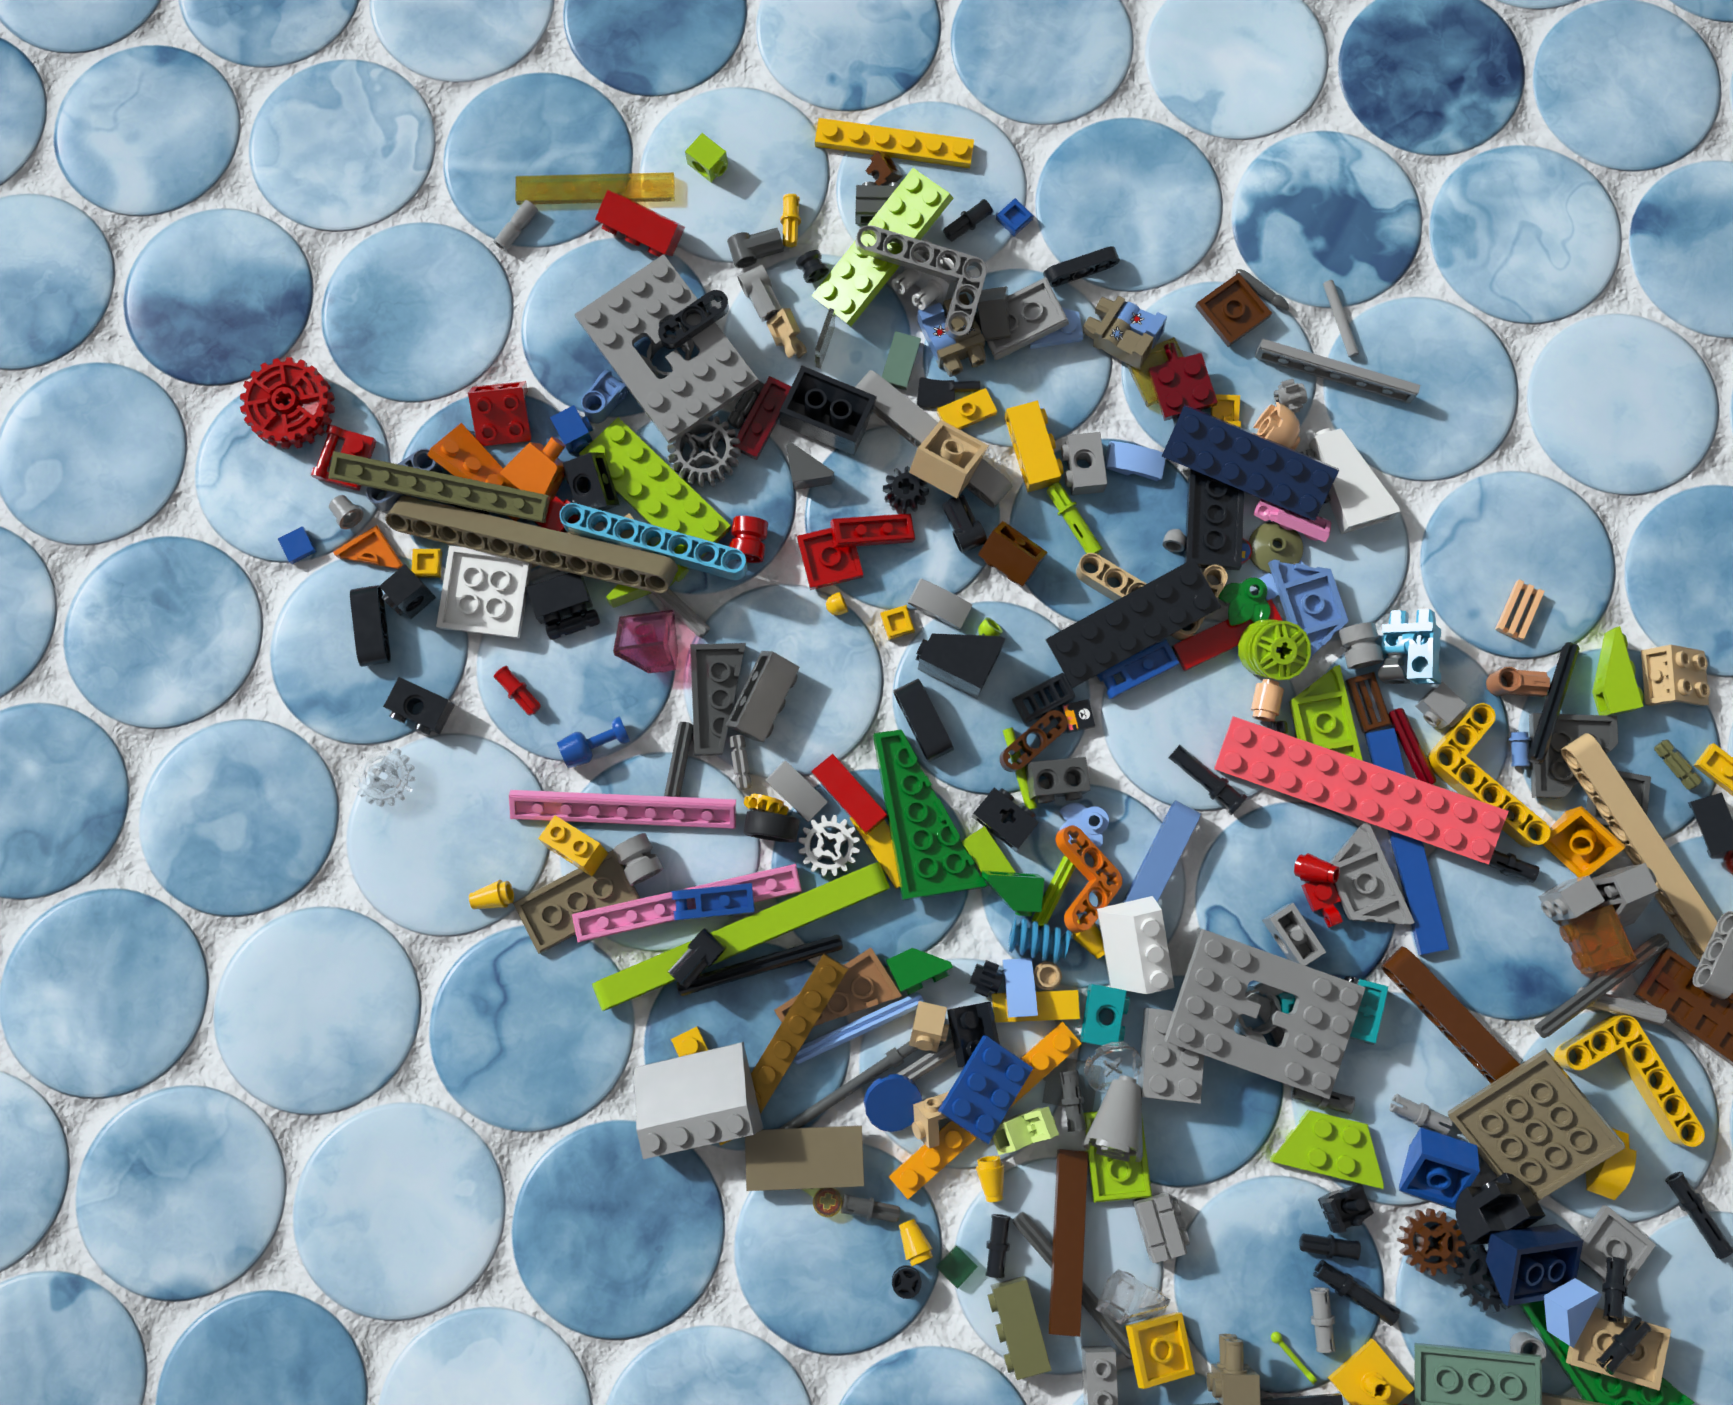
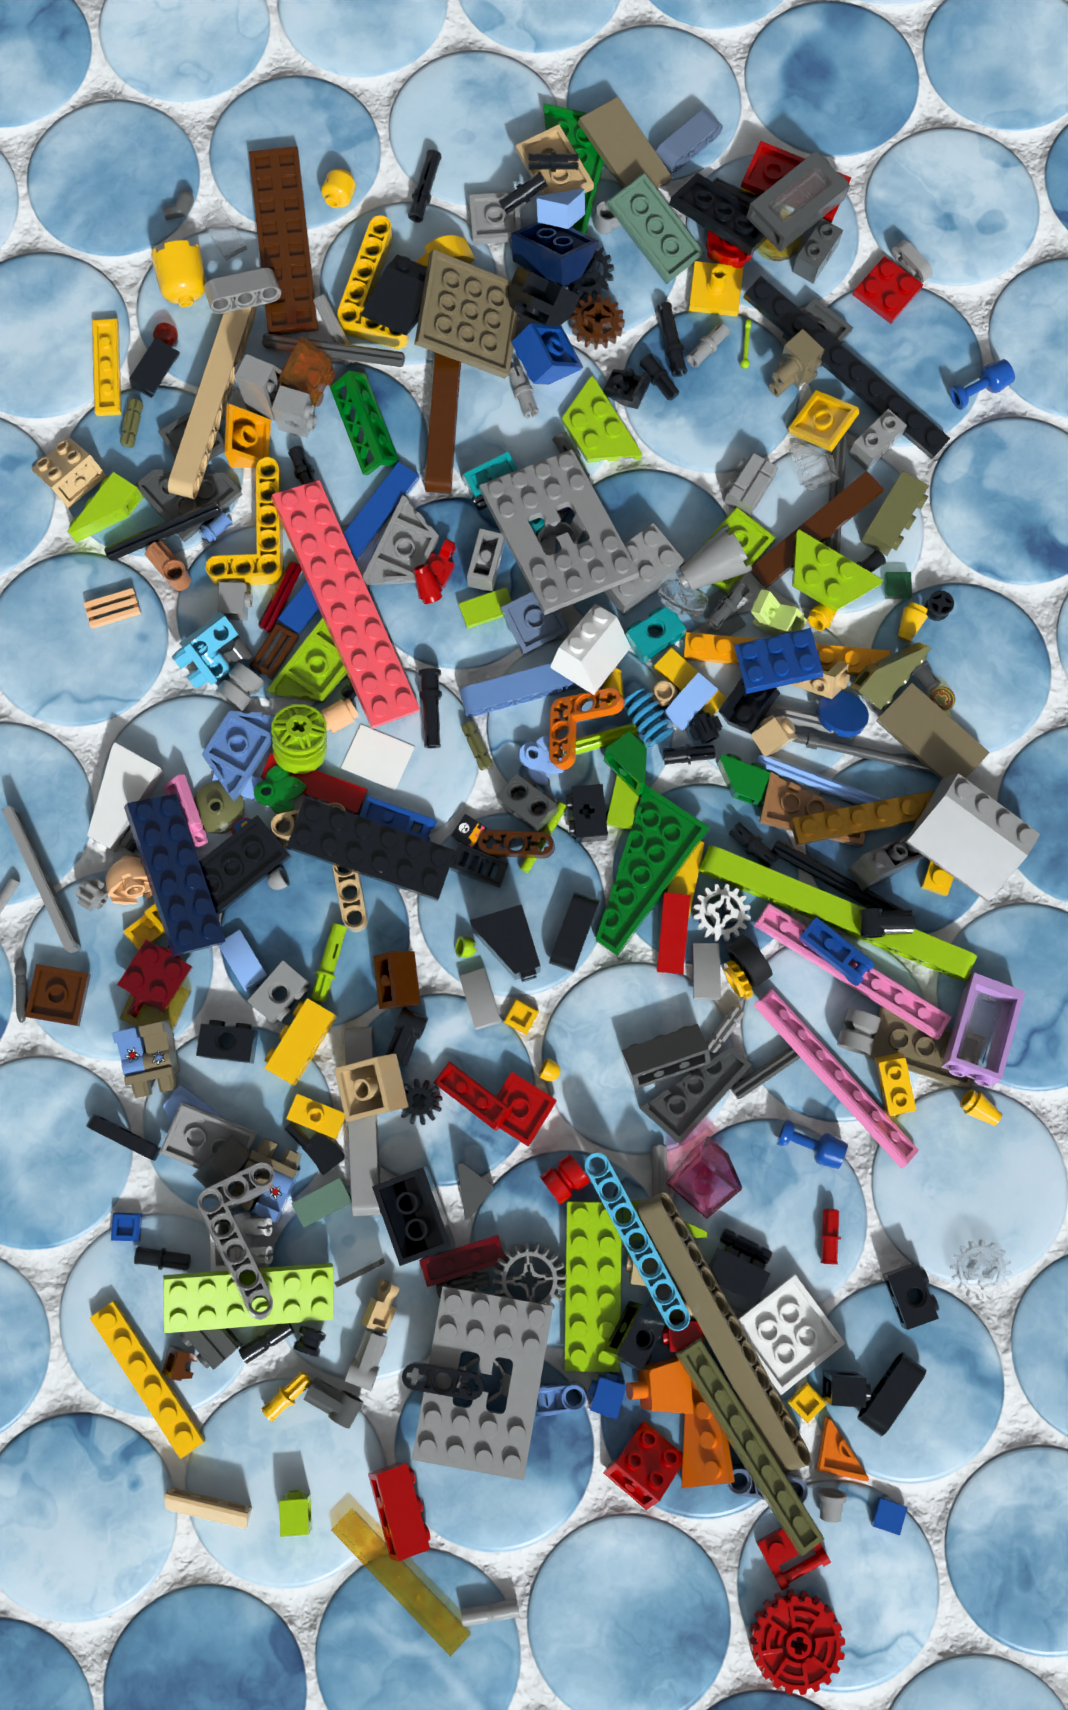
camera: 135 degrees left, 0 degrees up
(544, 954) = (983, 1030): none -> piece
(744, 1010) = (883, 863): none -> flat silver slope
(769, 110) = (207, 1508): none -> tan slope
(842, 236) = (264, 1342): none -> black piece
(857, 924) = (753, 845): none -> black pin
(890, 1168) = (885, 676): none -> olive slope
(978, 945) = (688, 754): none -> black axle
(1019, 1208) = (829, 575): none -> lime wing
(1088, 381) = (211, 1042): none -> black brick
(1142, 786) = (476, 745): none -> olive axle
(1204, 703) = (377, 757): none -> white sticker
(1204, 914) = (529, 623): none -> sand blue plate
(1252, 902) = (484, 608): none -> lime tile
(1511, 958) = (368, 418): none -> green fence
(1607, 1082) = (397, 295): none -> black slope

